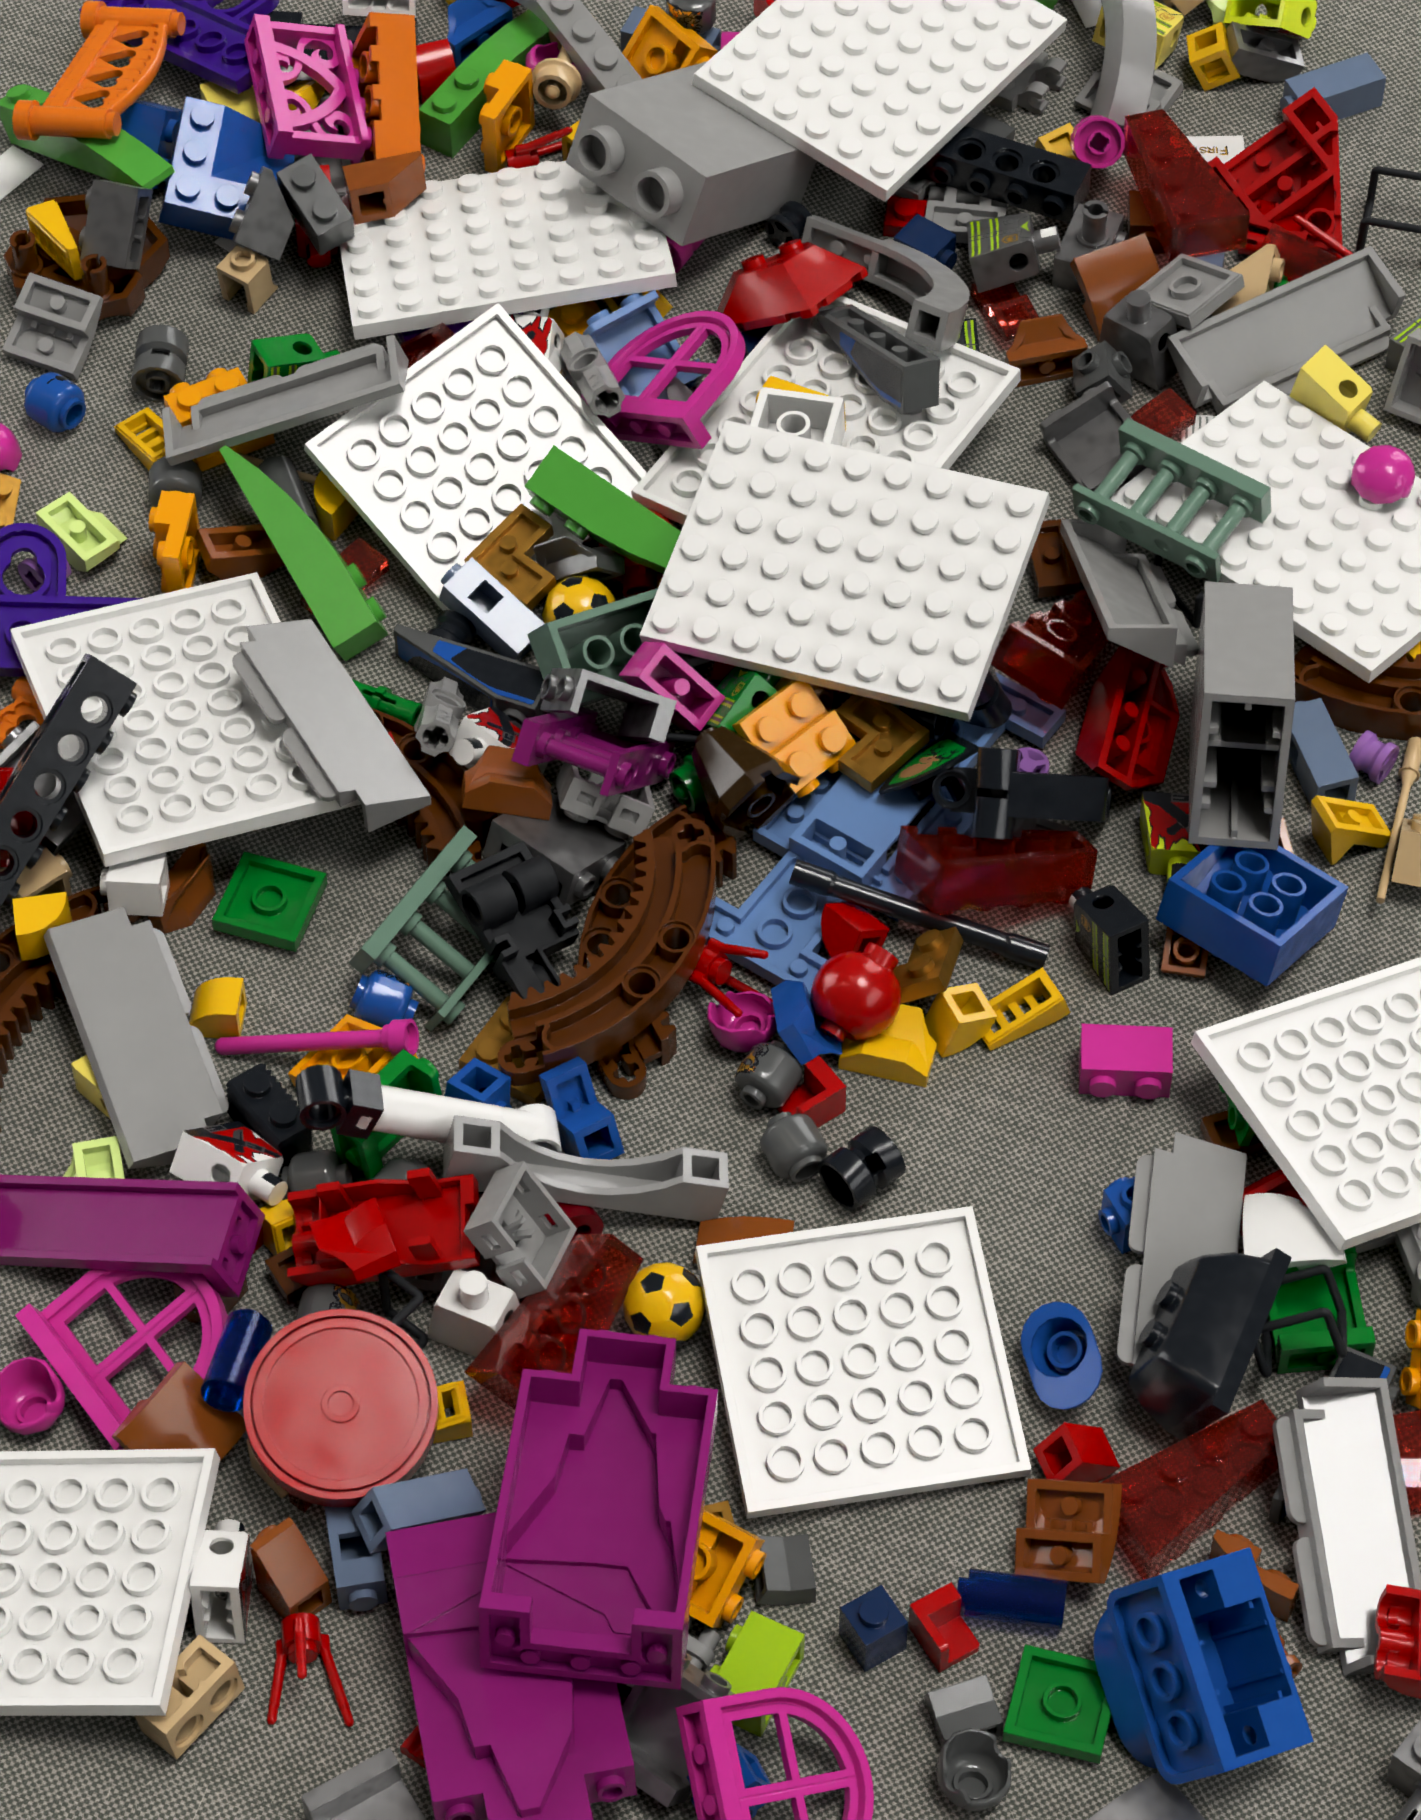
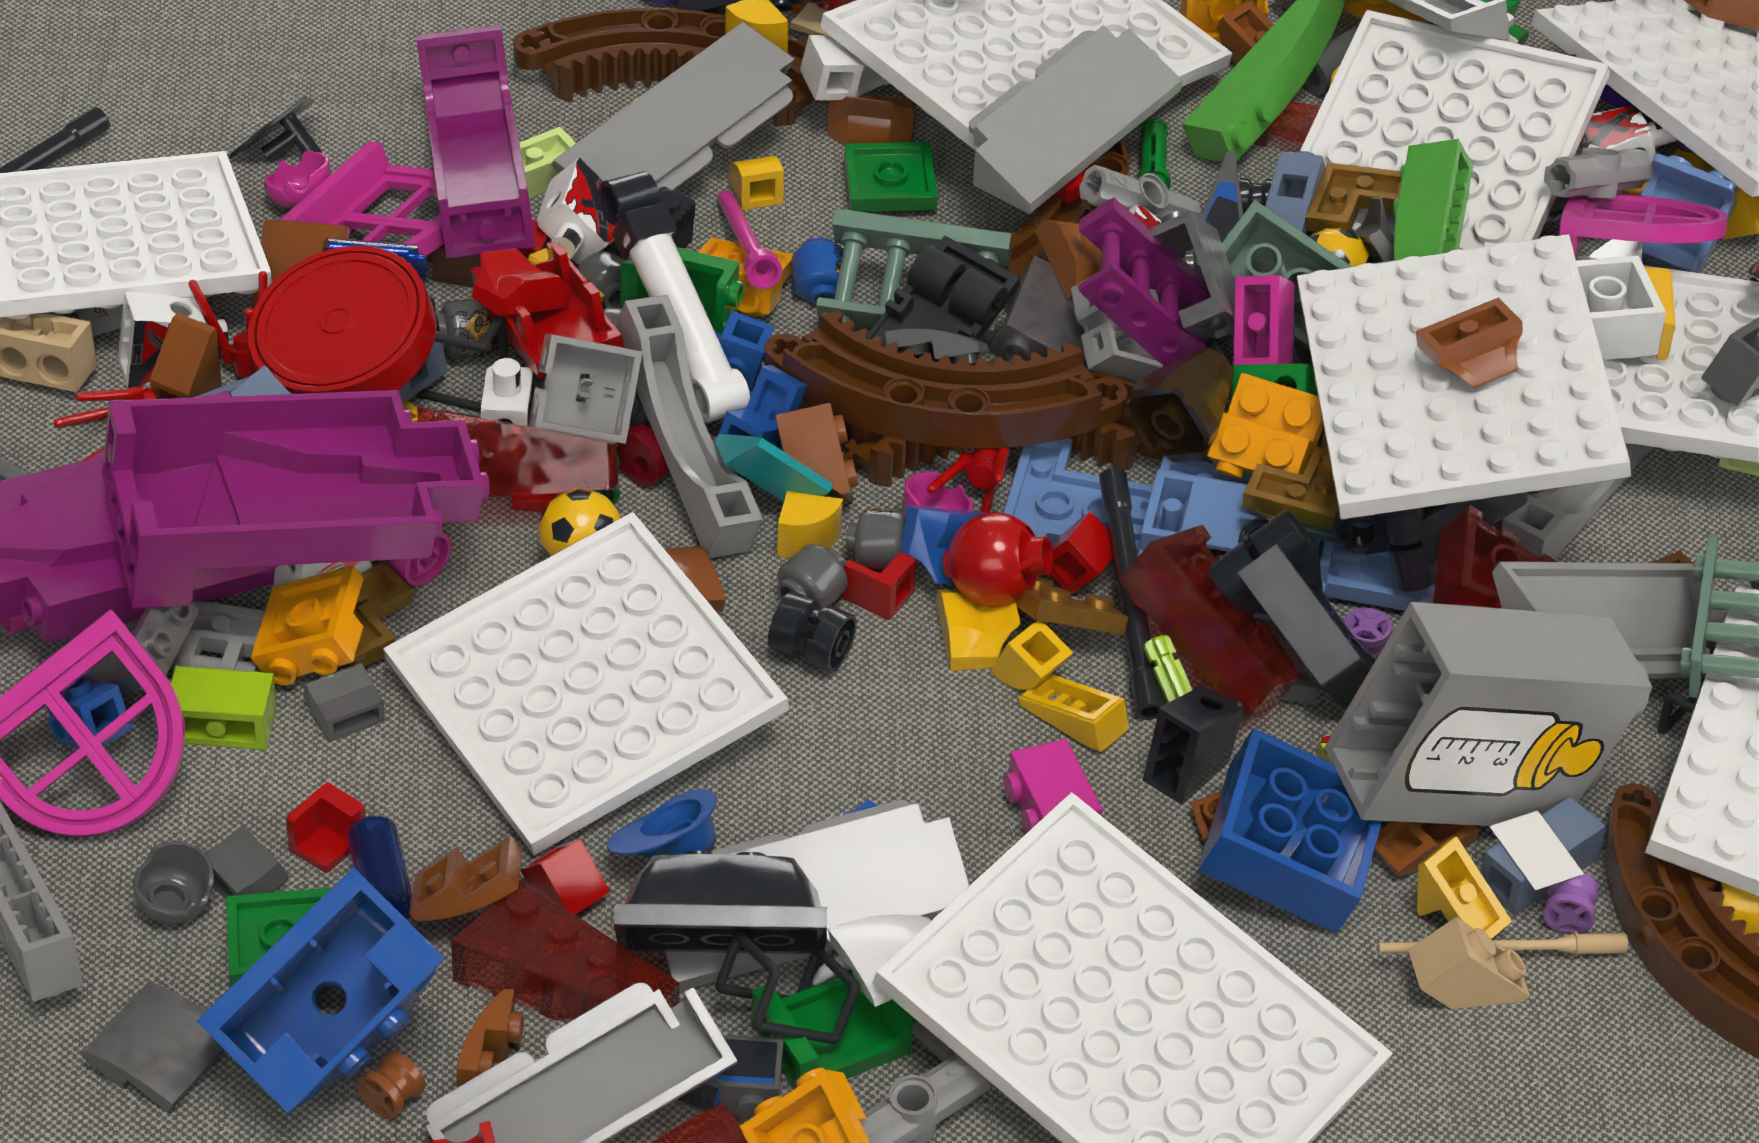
camera: 65 degrees right, 10 degrees down
(262, 1509) = (238, 352): none -> red plant
(586, 925) = (943, 344): none -> dark grey slope
(645, 1081) = (814, 440): none -> dark orange slope
(662, 1128) = (769, 466): none -> teal slope
(717, 1125) = (807, 521): none -> yellow brick
(852, 535) = (1475, 343): none -> dark orange slope
(873, 1628) = (298, 768): dark blue brick -> none
(1032, 925) = (1168, 671): none -> lime axle
(1331, 752) = (1536, 850): none -> white sticker

